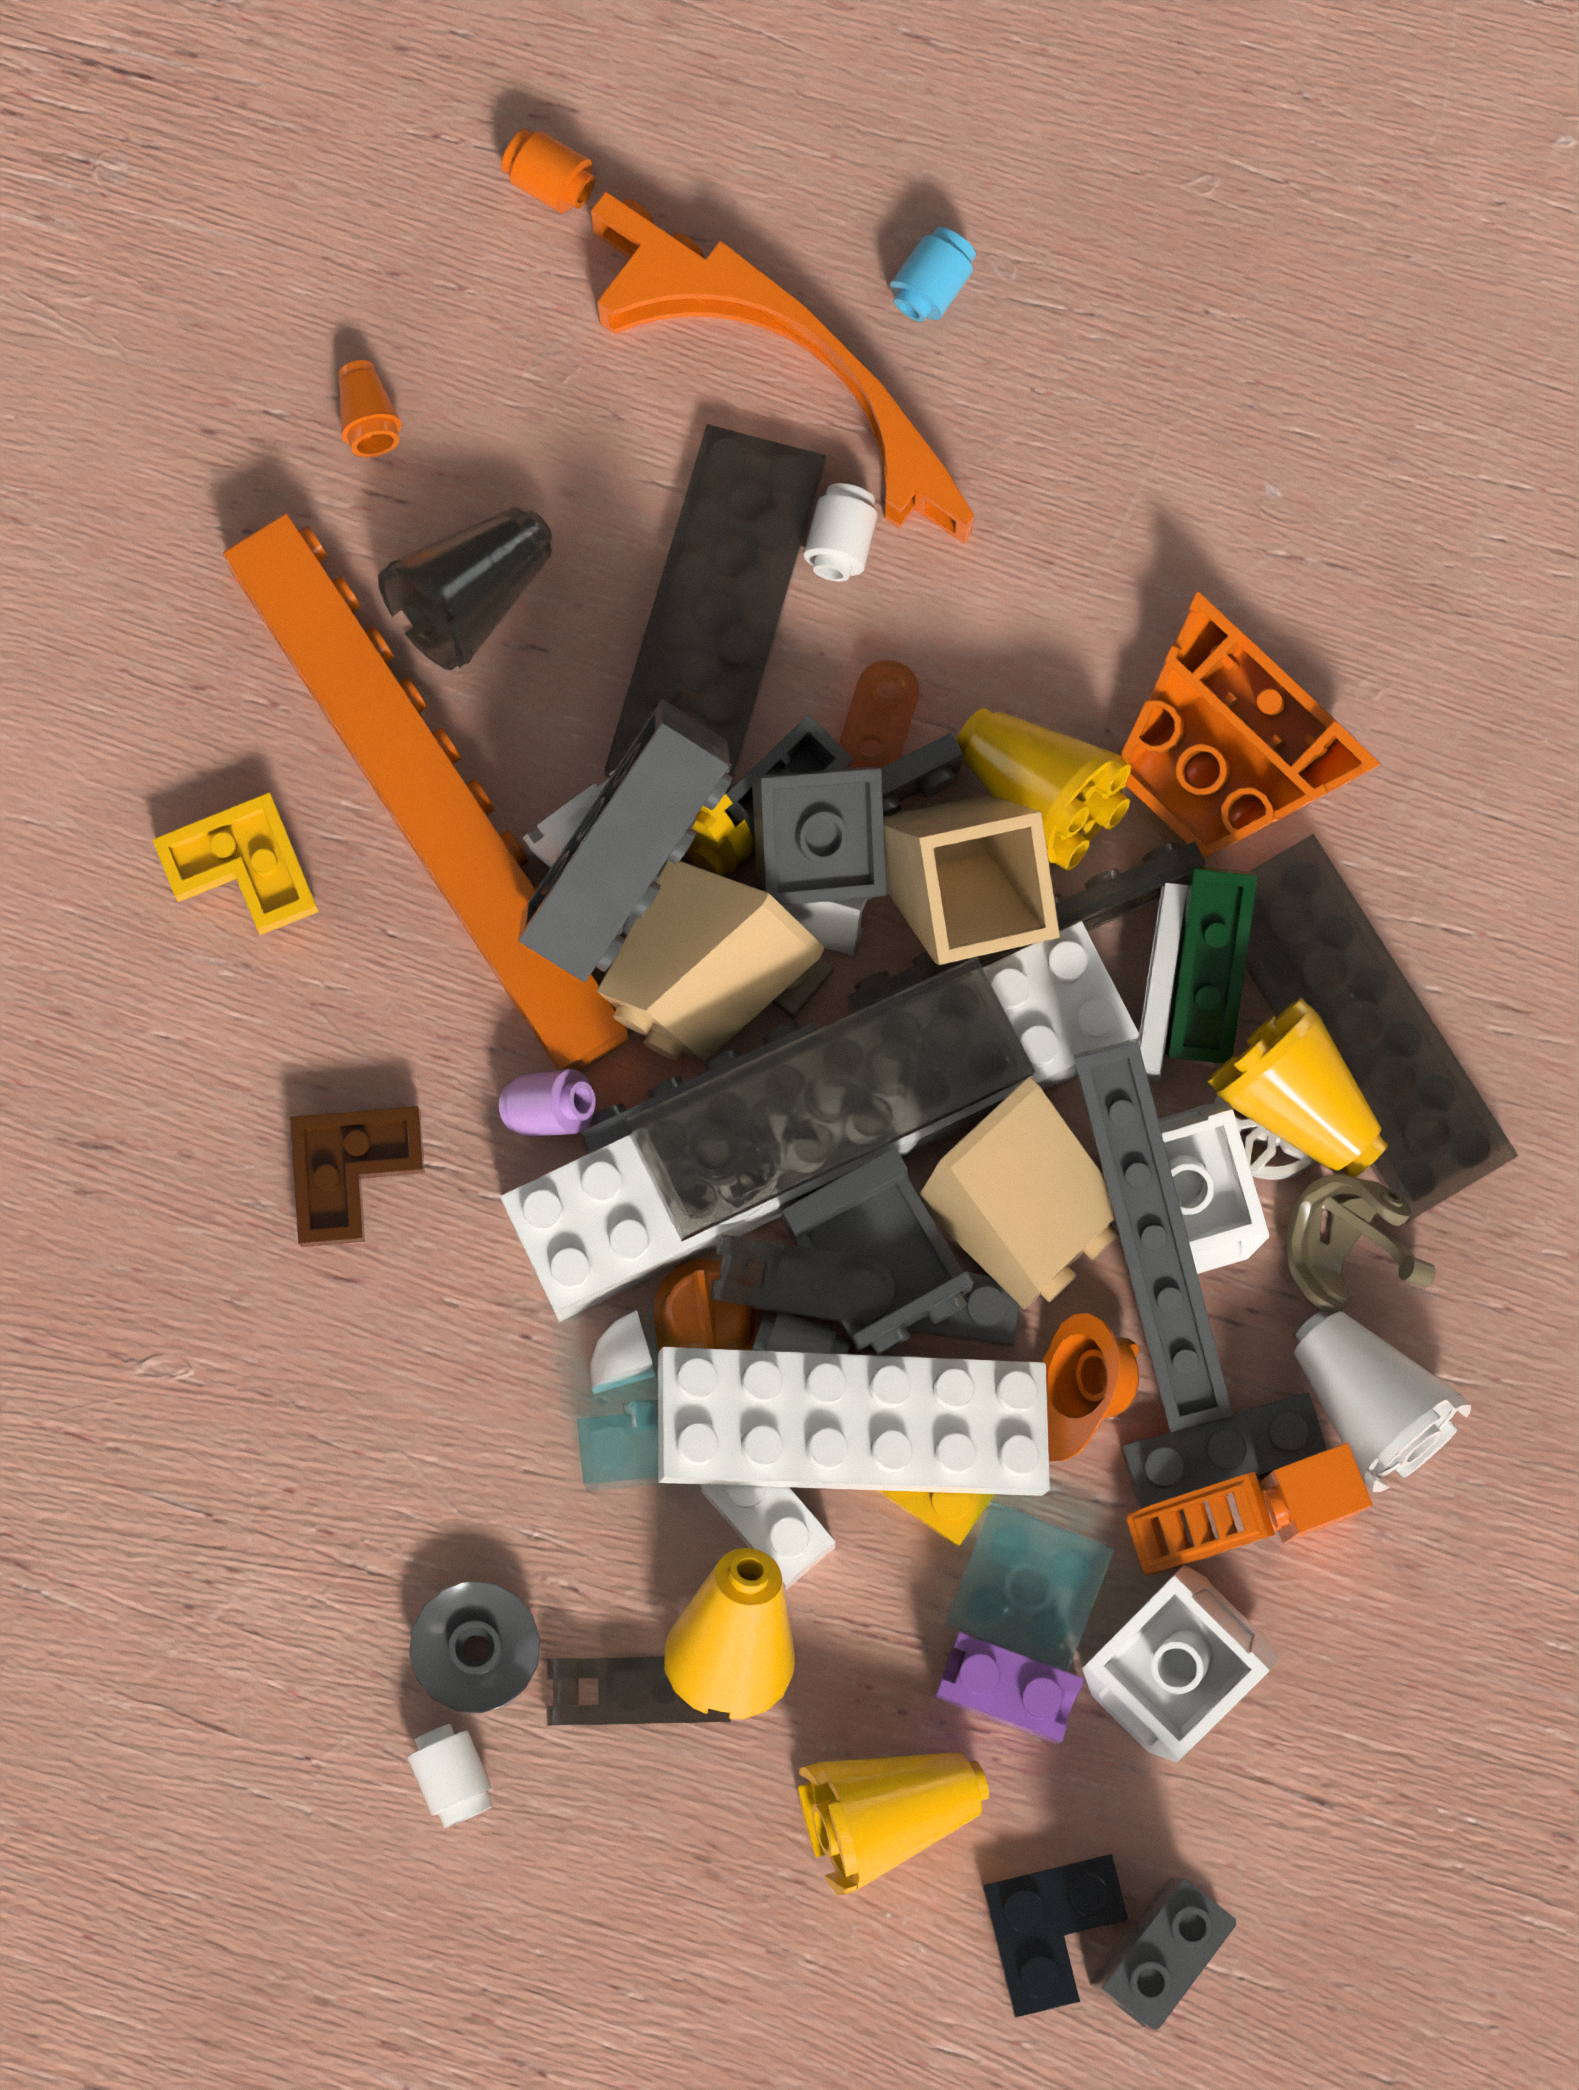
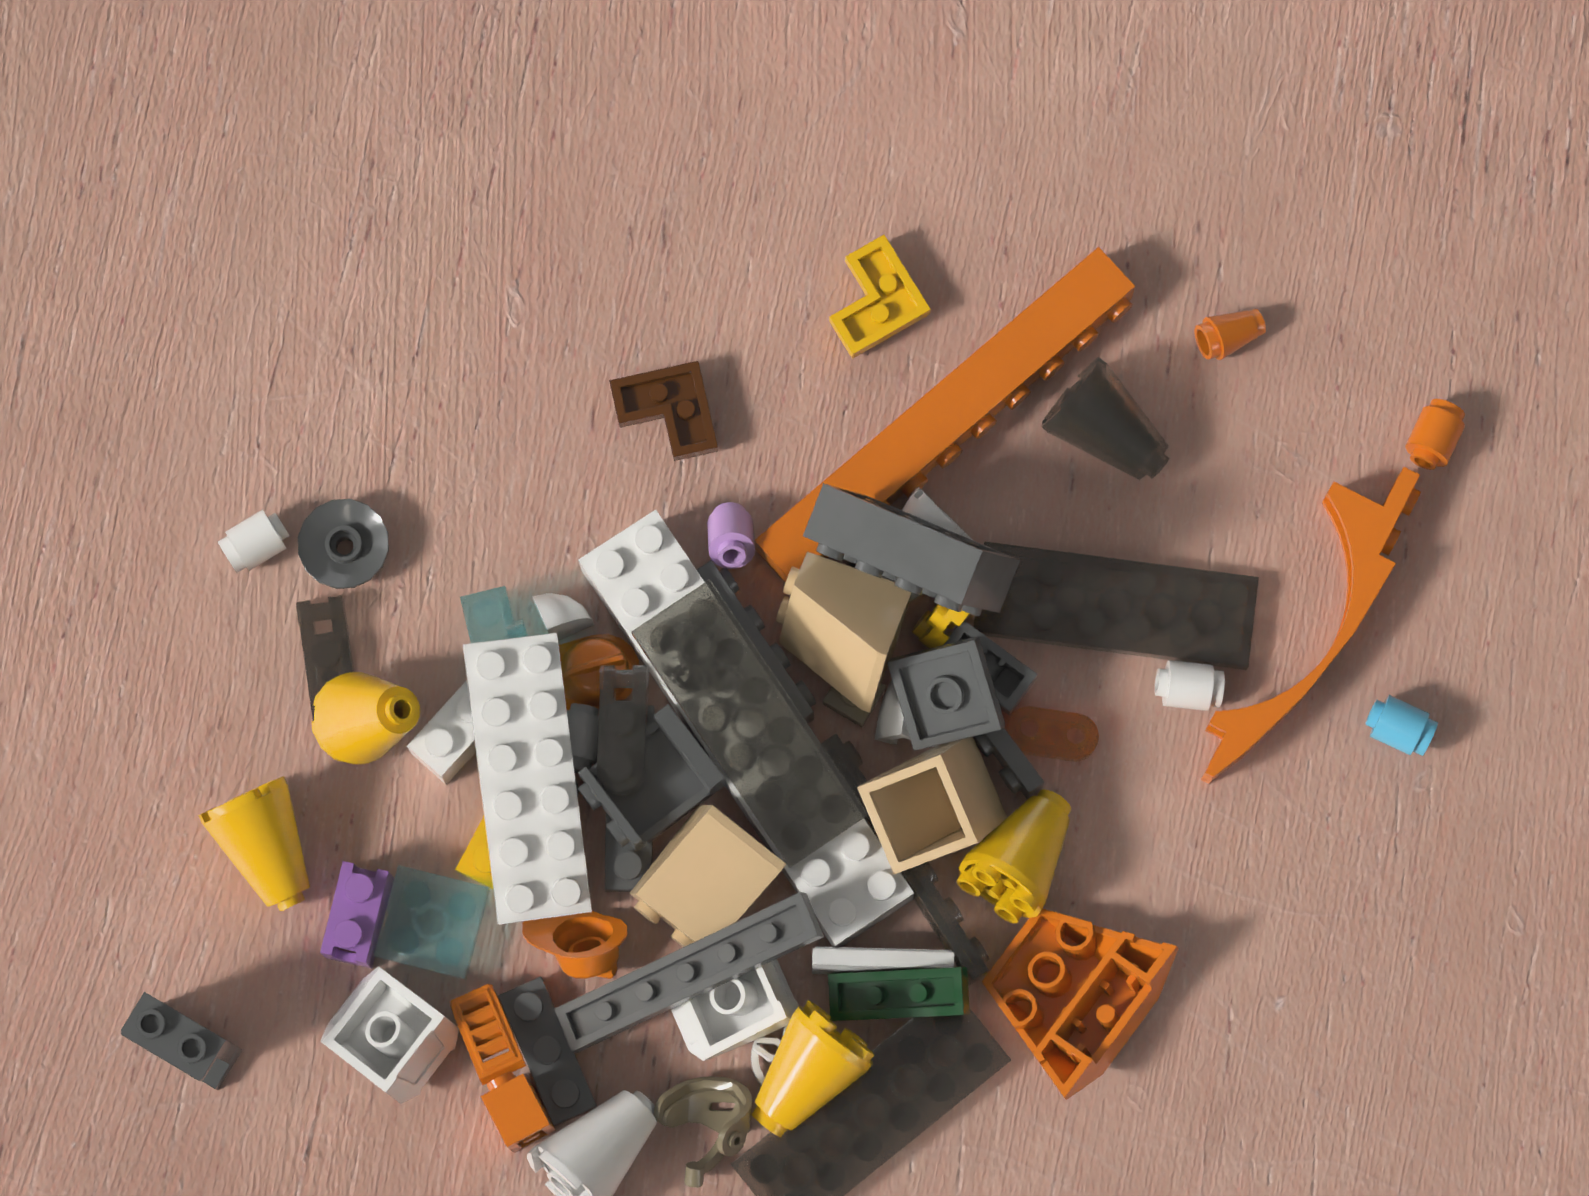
camera: 85 degrees right, 0 degrees up
(1030, 1925) = (201, 956): black plate -> none

